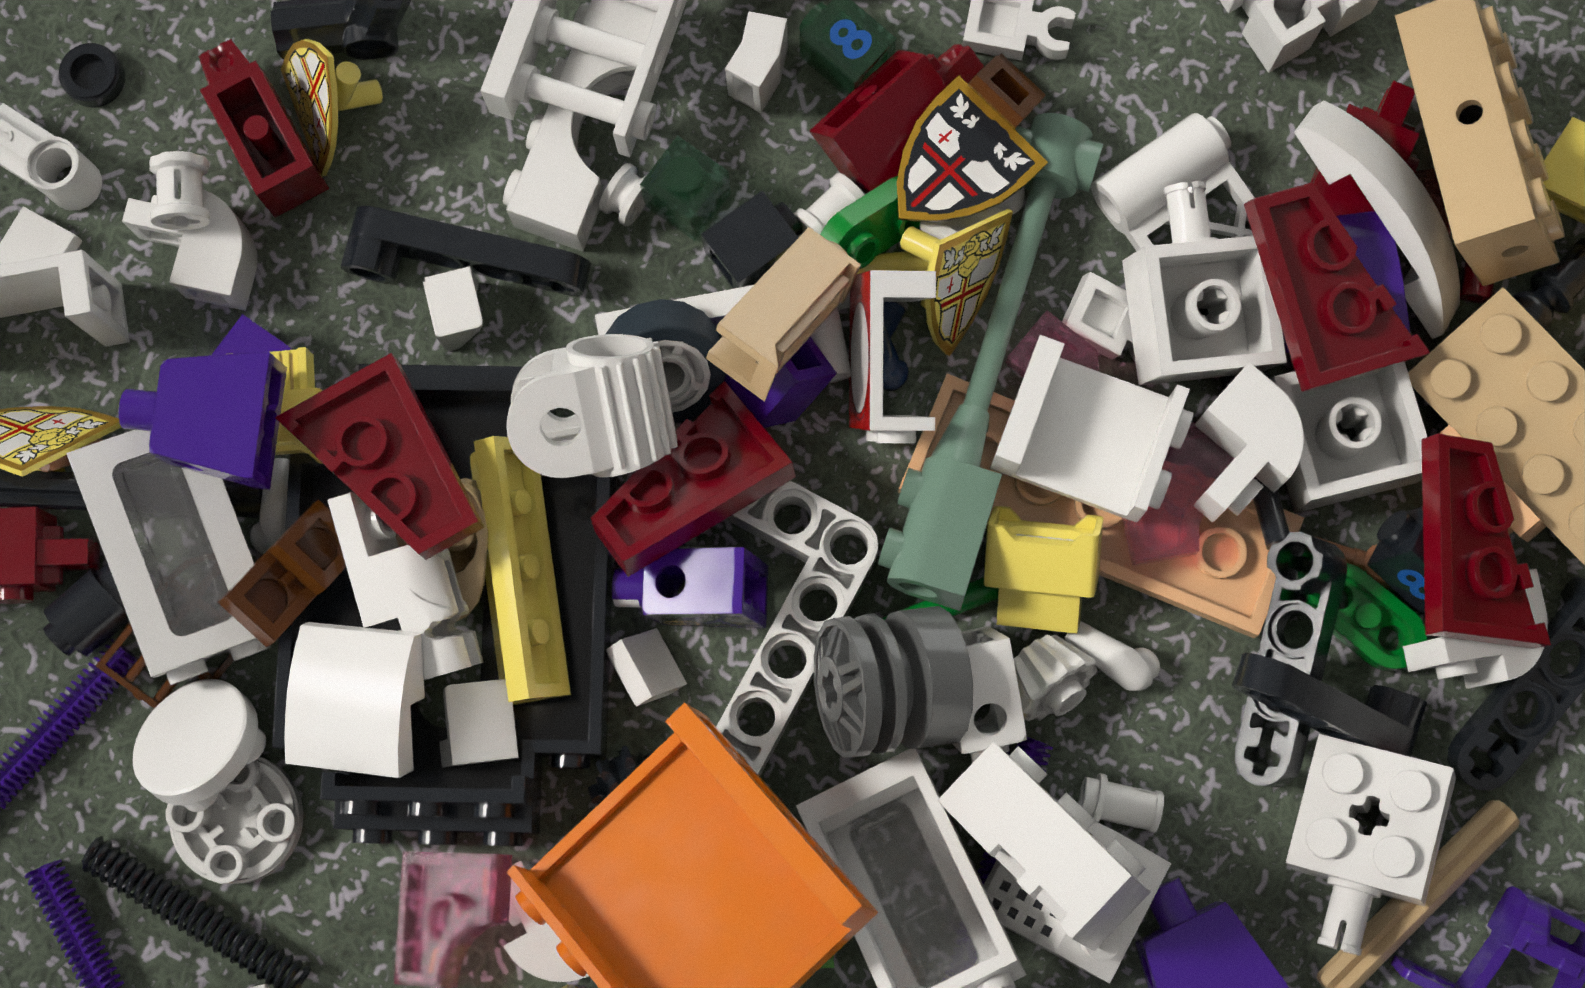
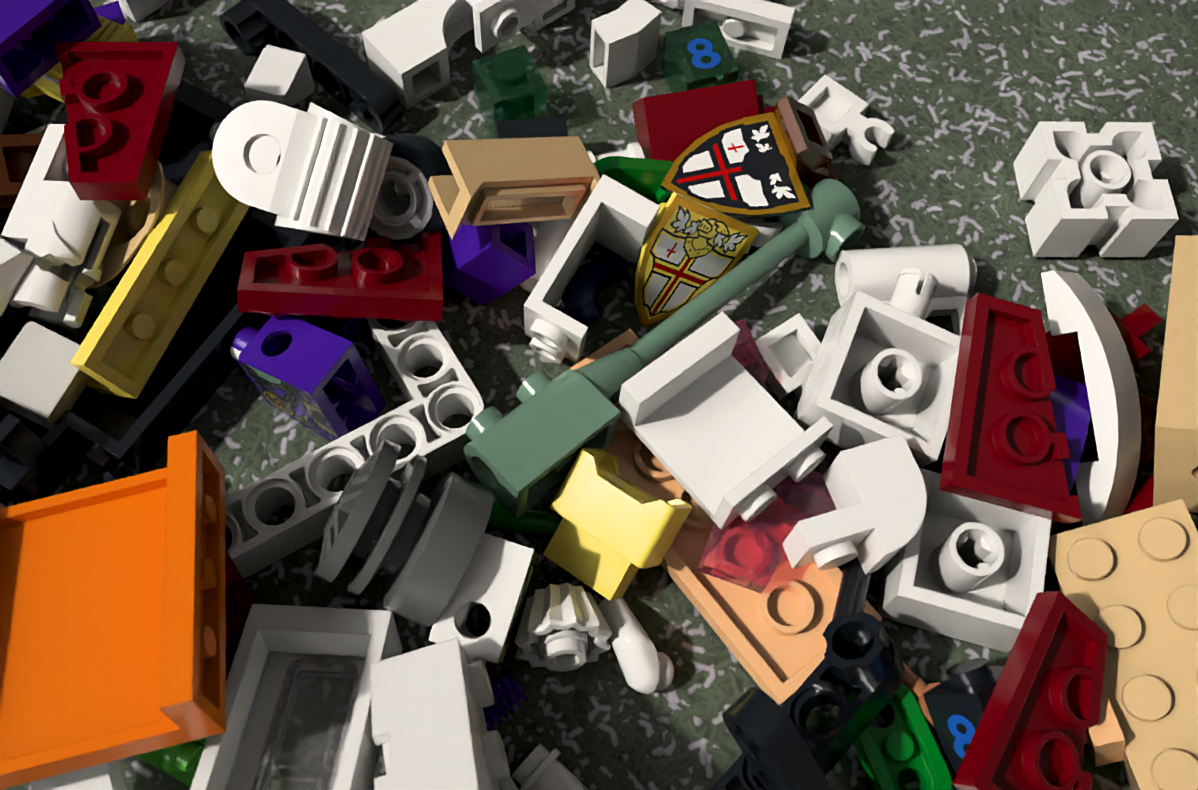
camera: 20 degrees right, 15 degrees down
(624, 195) = (457, 80): white bush -> none
(646, 667) = (222, 417): white tile -> none

